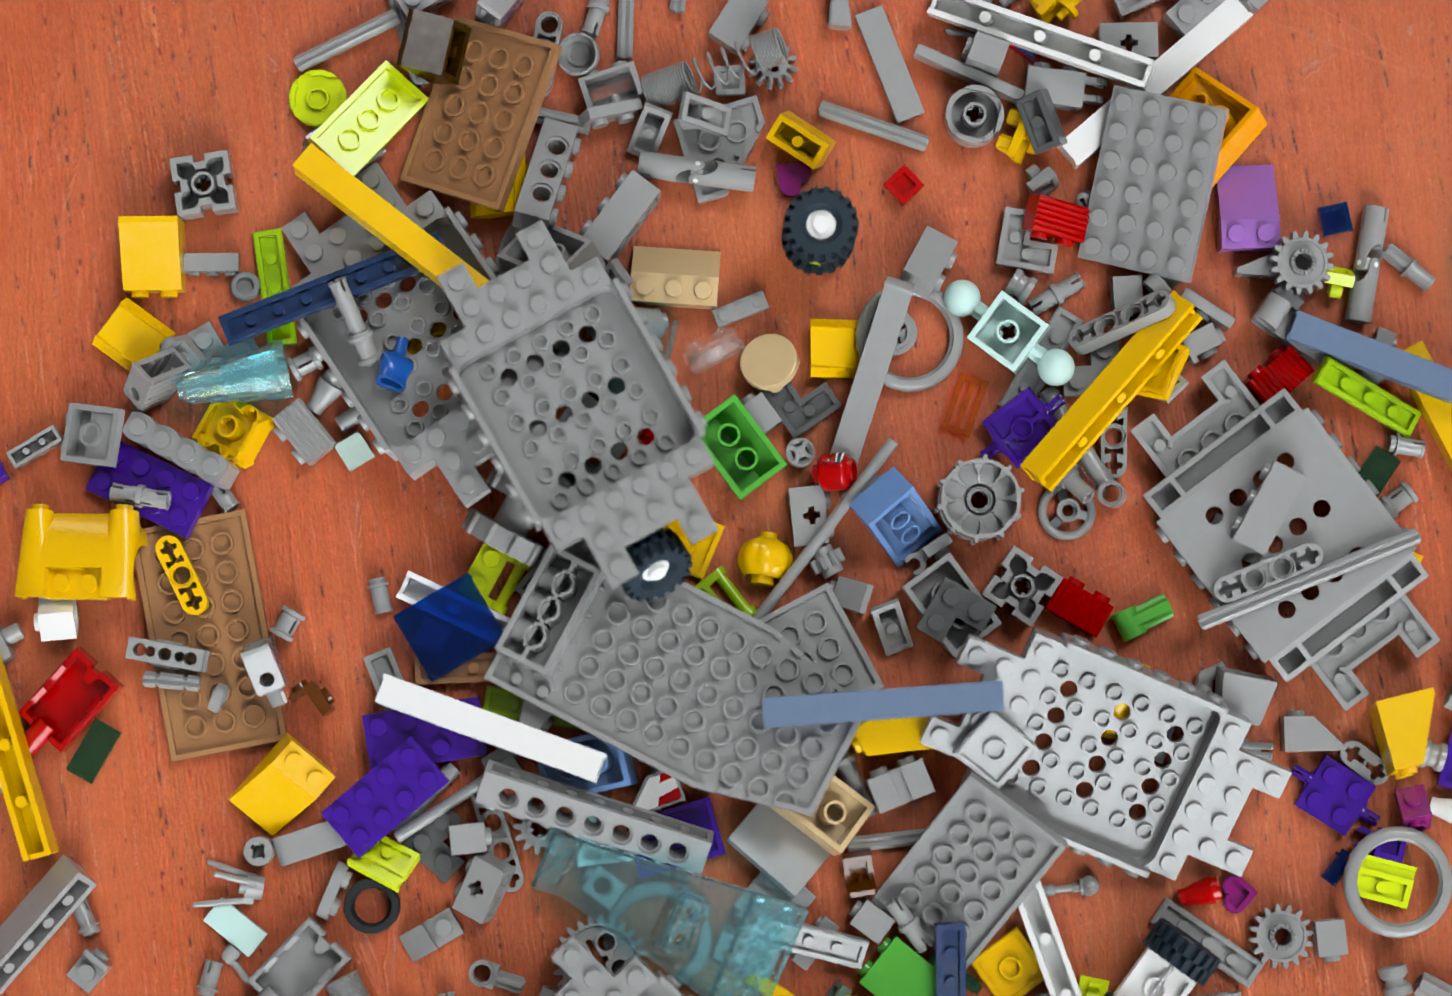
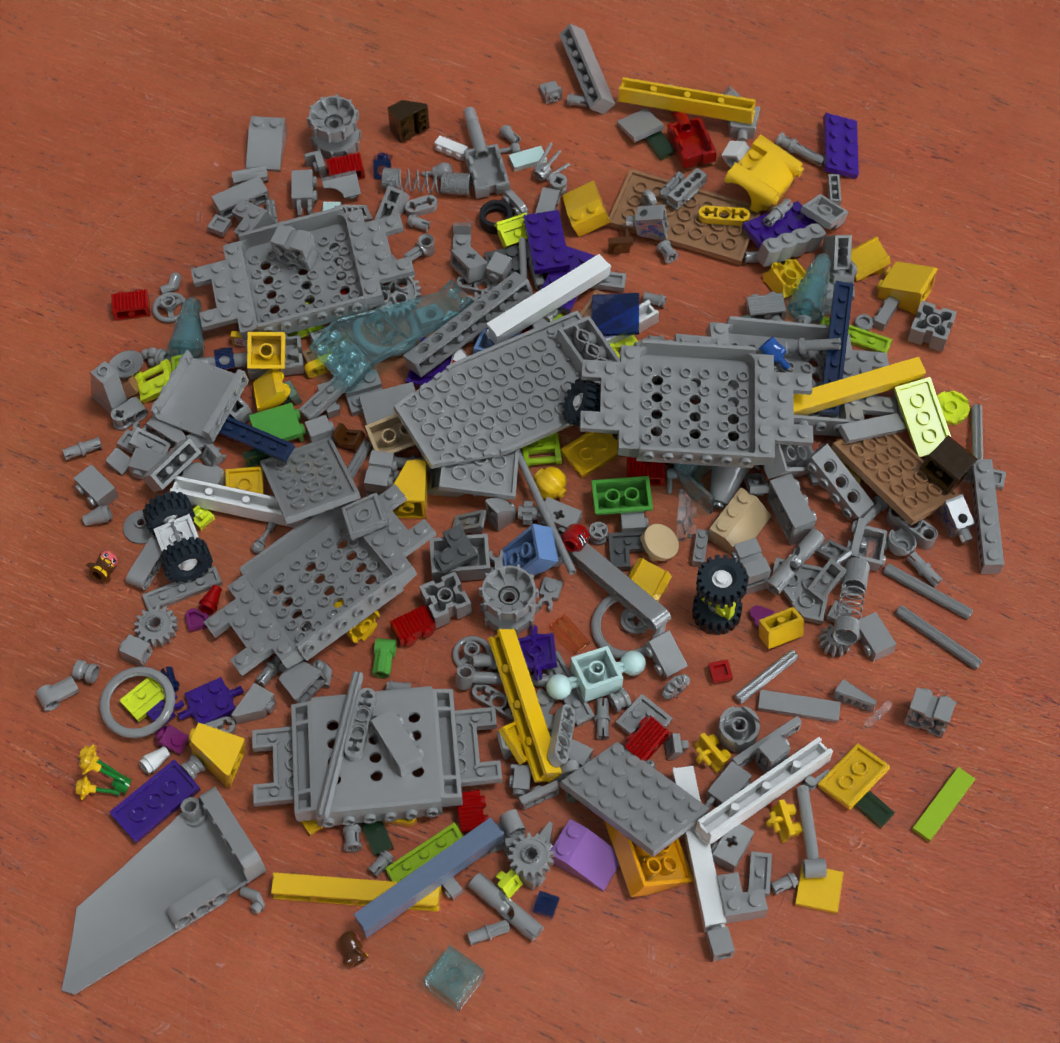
camera: 125 degrees right, 25 degrees down
(79, 795) = (640, 125): none -> light grey tile
(432, 176) = (872, 428): none -> light grey tile
(738, 224) = (757, 568): none -> light grey brick
(883, 704) = (427, 467): sand blue tile -> none
(908, 924) = (307, 441): light grey pin -> none
(918, 465) = (549, 591): none -> light grey plate
(963, 225) = (675, 686): none -> light grey gear
(1041, 121) = (712, 761): dark grey slope -> none
(1171, 572) = (397, 685): none -> light grey pin

